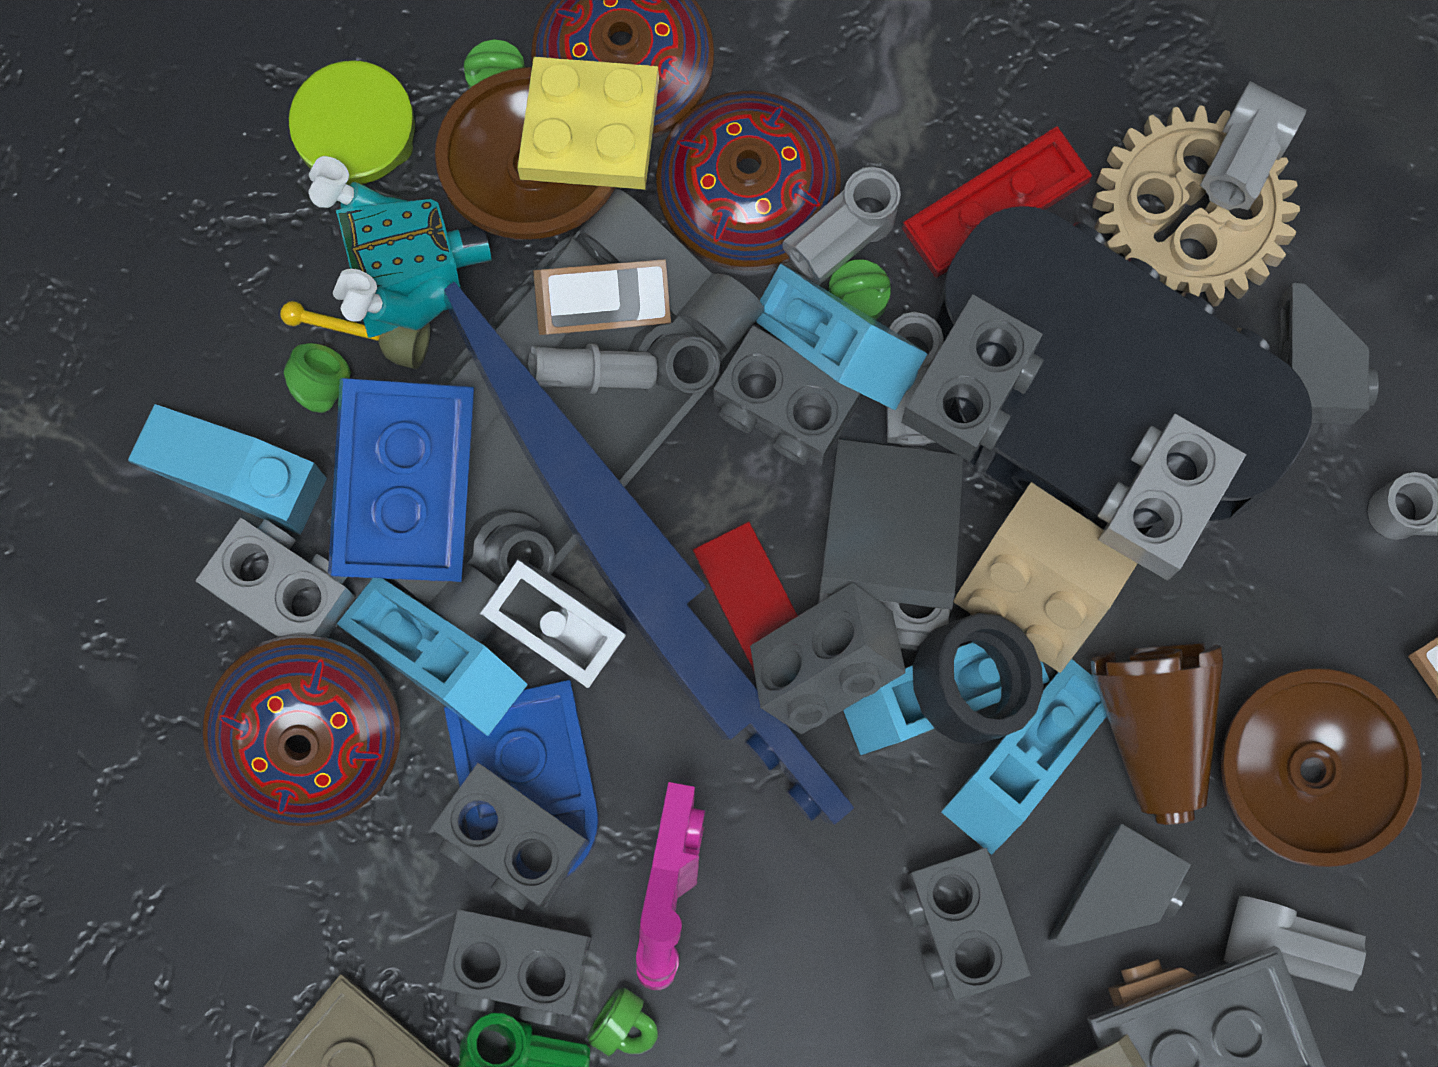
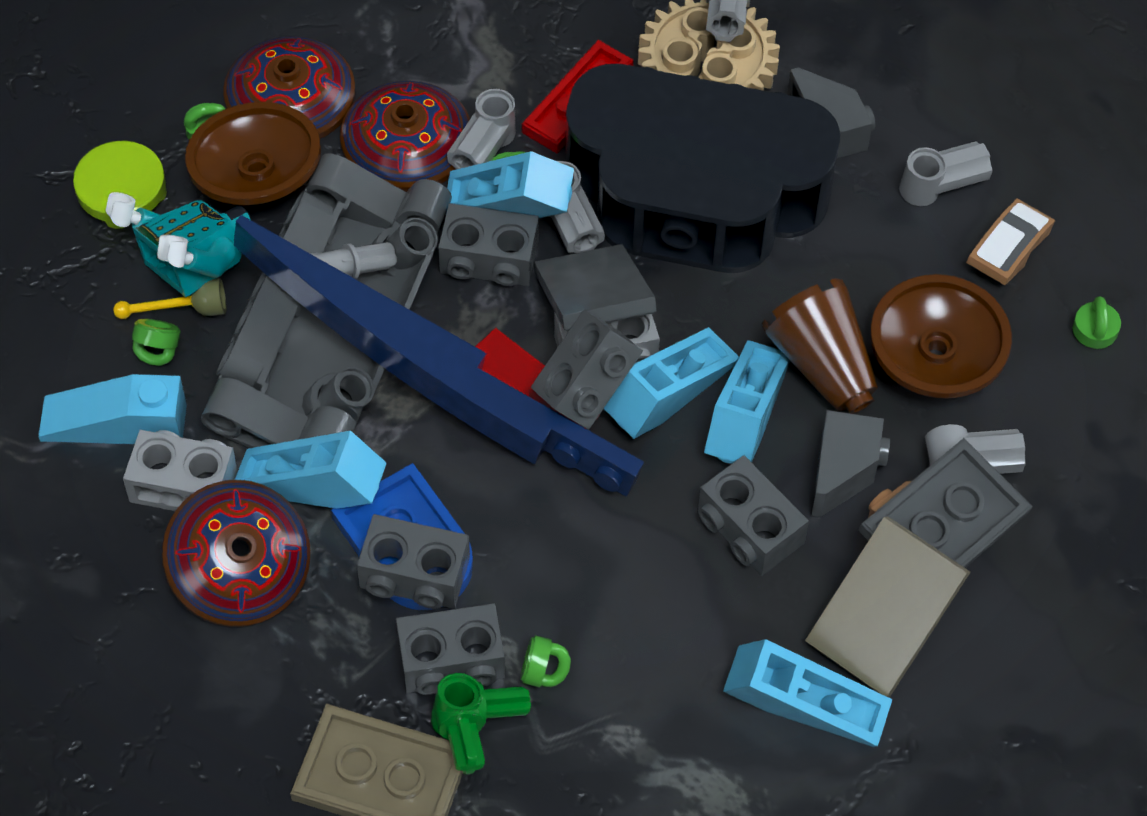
camera: 25 degrees left, 20 degrees down
(400, 480) = (247, 361): blue plate -> none
(555, 621) = (390, 418): slope -> none
(588, 123) = (288, 119): light yellow plate -> none
(602, 296) = (338, 213): slope -> none
(671, 876) = (540, 550): dark pink plate -> none
(961, 373) = (607, 161): dark grey brick -> none
(1016, 665) = (680, 369): black tyre -> none
(1047, 576) = (710, 282): tan brick -> none
(1180, 503) = (771, 186): light grey brick -> none

